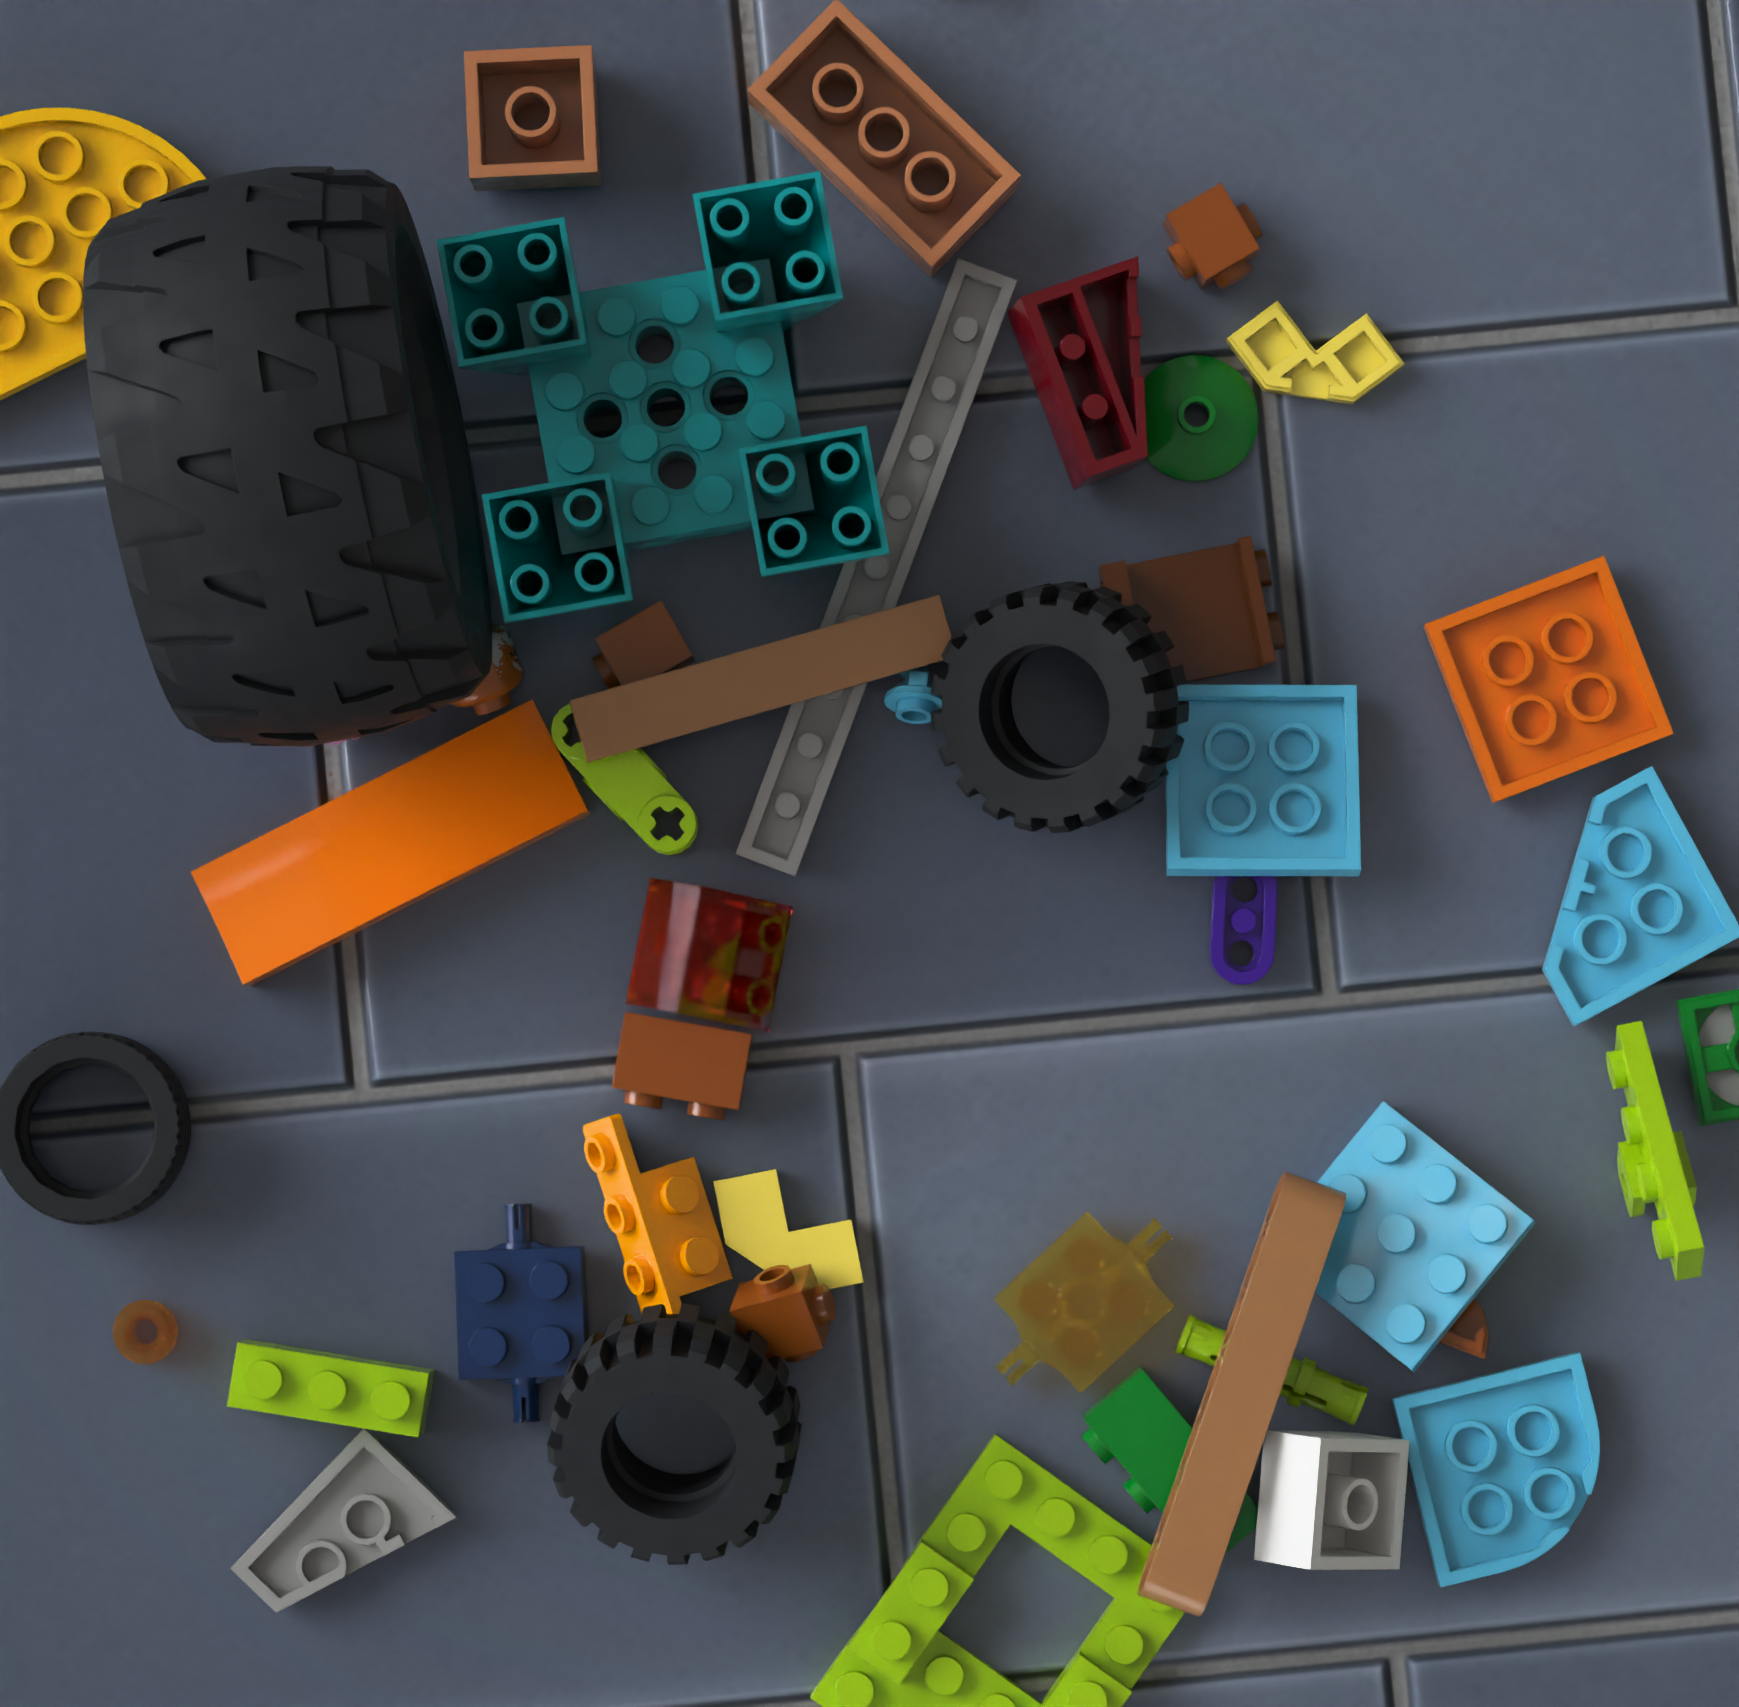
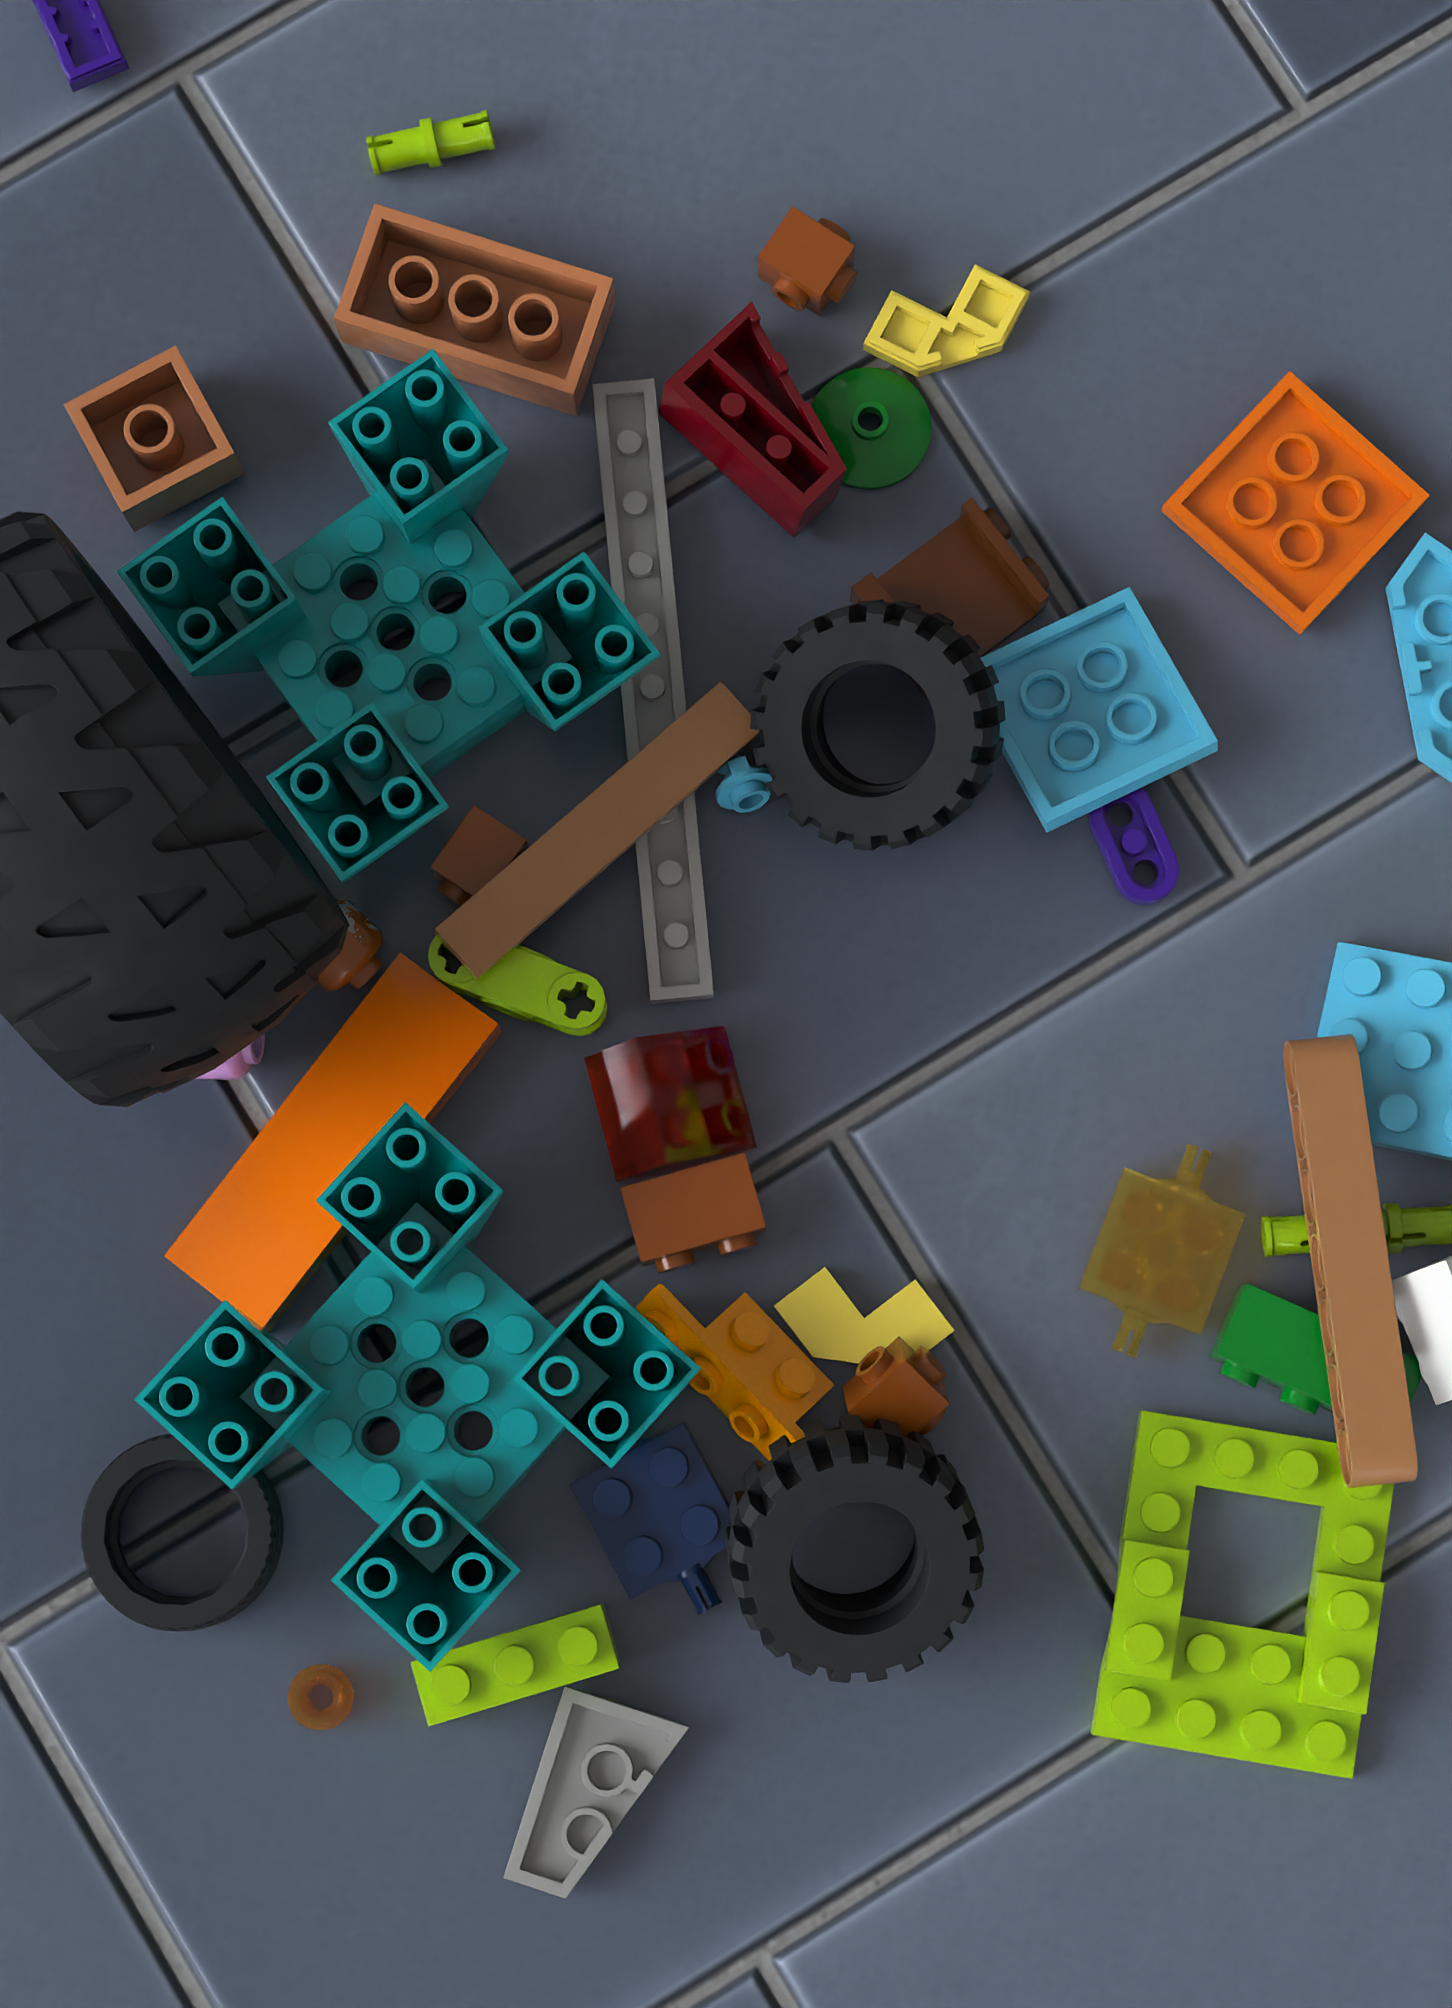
camera: 25 degrees left, 5 degrees down
(209, 1038) = (248, 1397): none -> teal slope

